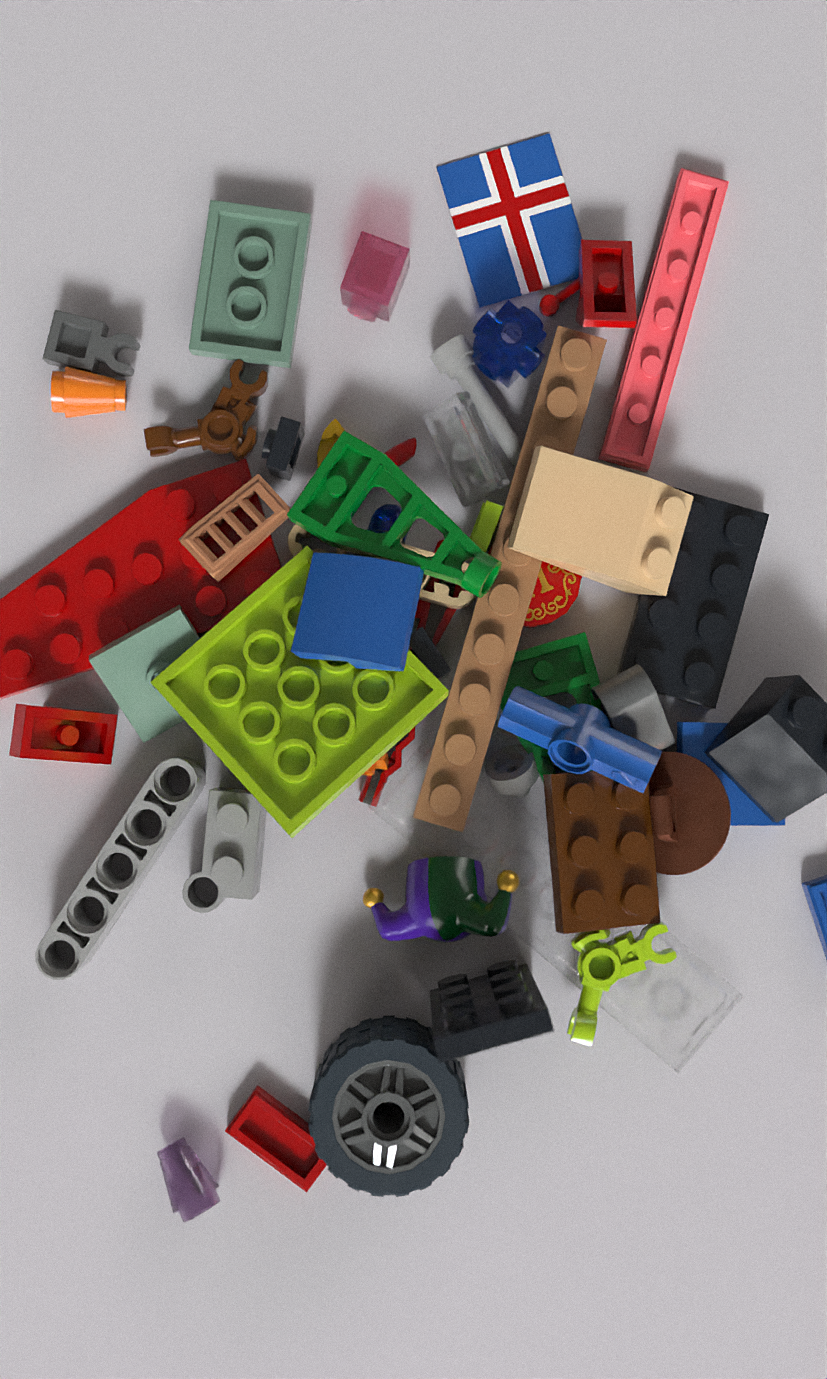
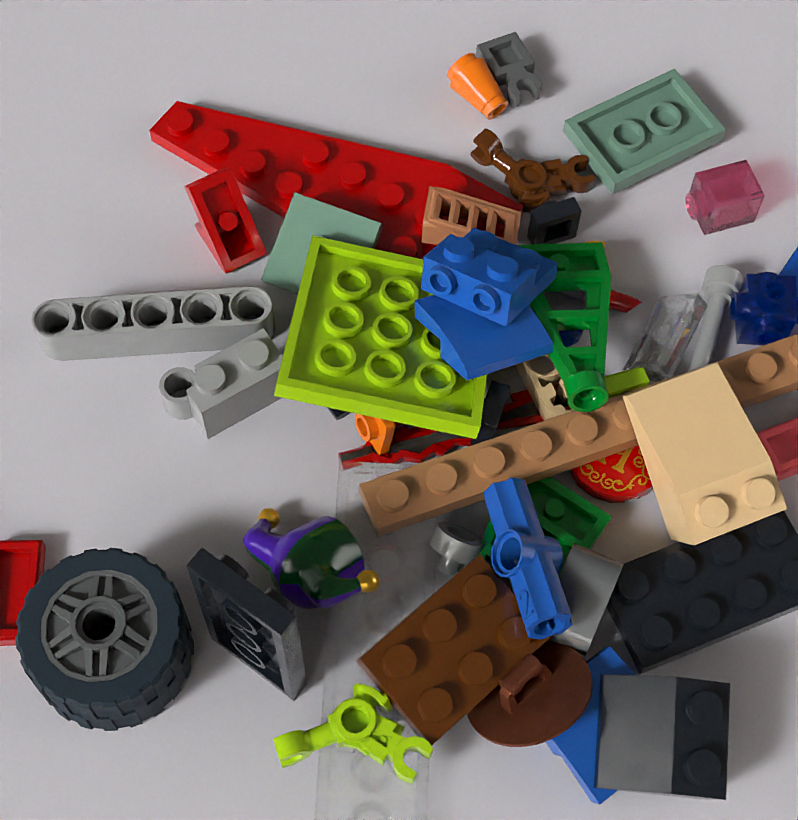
camera: 55 degrees right, 25 degrees down
(314, 569) = (486, 275): none -> blue plate

